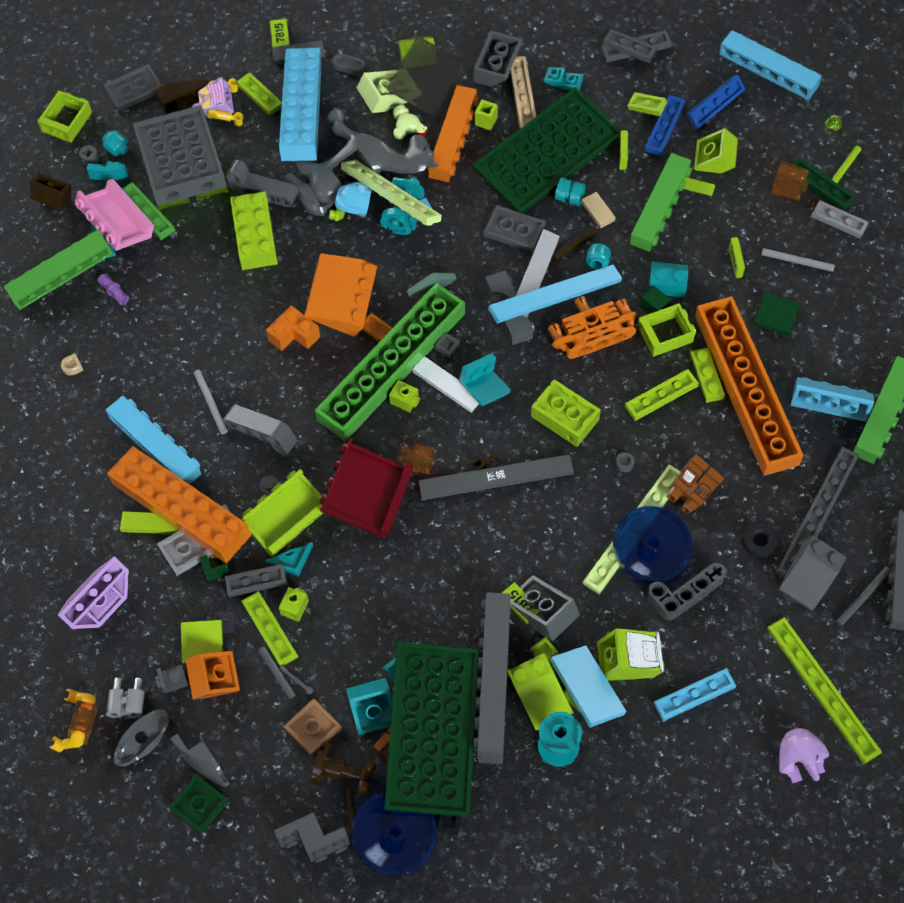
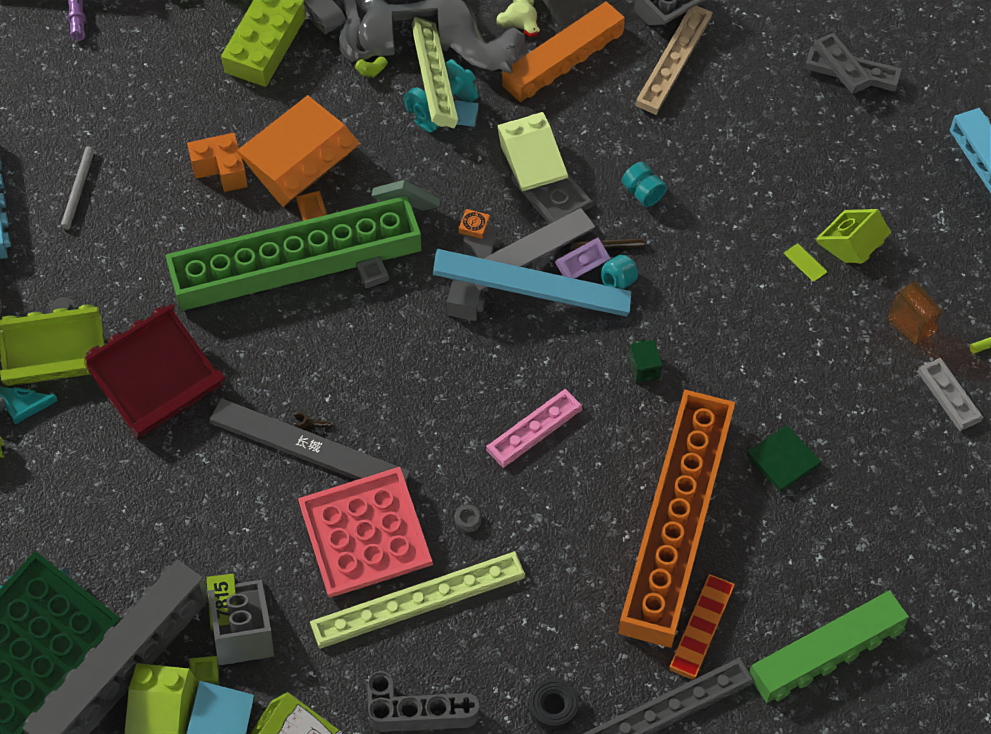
camera: 30 degrees right, 5 degrees down
(261, 427) = (101, 245): dark grey beam -> none
(353, 198) = (394, 60): medium azure helmet -> none
(404, 396) = (279, 299): lime brick -> none
(421, 457) = (240, 375): clear orange brick -> none
(445, 383) = (339, 315): white tile -> none
(482, 381) = (377, 331): teal bracket -> none
(486, 114) = (614, 50): lime brick -> none
(487, 210) = (532, 151): none -> yellowish green slope
(491, 276) = (474, 223): none -> orange tile
(546, 150) = (655, 124): dark green plate -> none
(559, 78) = (735, 58): teal slope -> none
(565, 413) = (439, 421): lime piece -> none
(569, 261) = (583, 259): none -> lavender plate
(574, 507) = (365, 532): none -> coral plate
(595, 335) = (559, 359): orange piece -> none
(598, 210) = (663, 223): tan tile -> none
(620, 383) = (534, 428): none -> bright pink tile
(623, 150) = (744, 172): lime tile -> none
(647, 104) = (813, 137): lime plate -> none
(652, 544) = (417, 628): clear blue dish -> none
(655, 347) = (638, 380): lime window -> none
(660, 202) = (742, 253): bright green brick -> none
(661, 395) = (570, 468): lime plate -> none
(665, 125) = (817, 172): blue plate -> none
(669, 278) = (683, 343): teal slope -> none
(689, 490) = (512, 592): dark orange hips -> none
(707, 375) = (643, 478): lime plate -> none
(715, 101) = (899, 178): blue plate -> none
(736, 257) = (783, 365): lime tile -> none
(797, 259) = (860, 411): light grey bar -> none
(808, 443) = (701, 627): none -> tile
(826, 187) = (959, 344): dark green plate -> none
(832, 399) = (769, 592): medium azure slope -> none

